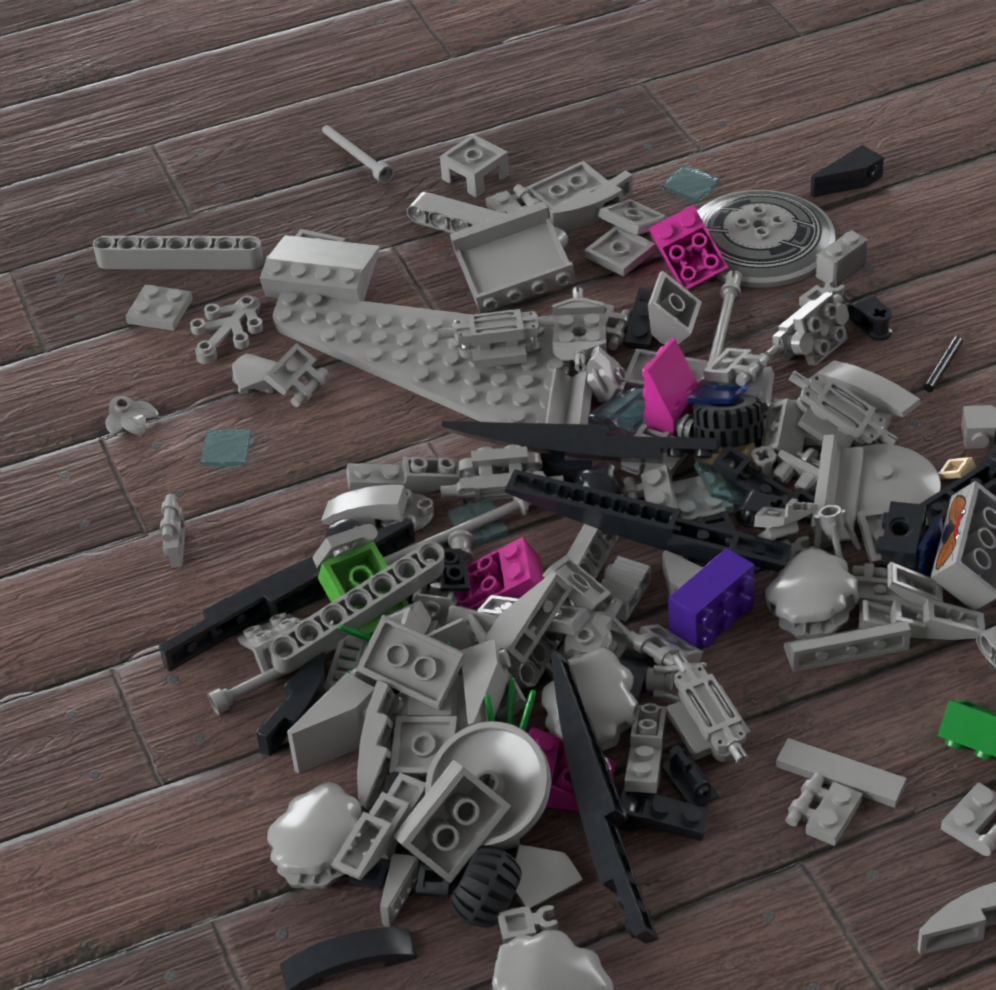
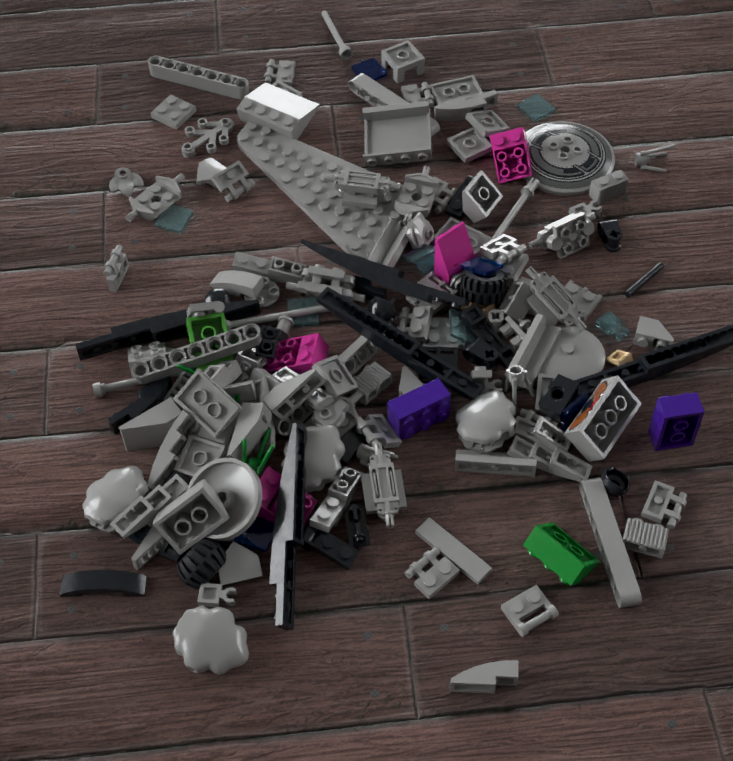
camera: 15 degrees right, 10 degrees up
(194, 412) = (164, 190): none -> light grey plate
(301, 213) = (284, 71): none -> light grey plate
(426, 183) = (370, 68): none -> clear blue piece
(552, 829) = (257, 535): none -> piece
(779, 516) = (483, 363): light grey slope -> none
(848, 173) = (640, 126): black slope -> none
(871, 388) = (584, 288): light grey slope -> none
(873, 211) = (643, 158): none -> light grey plant
(926, 430) = (612, 324): none -> clear light blue plate

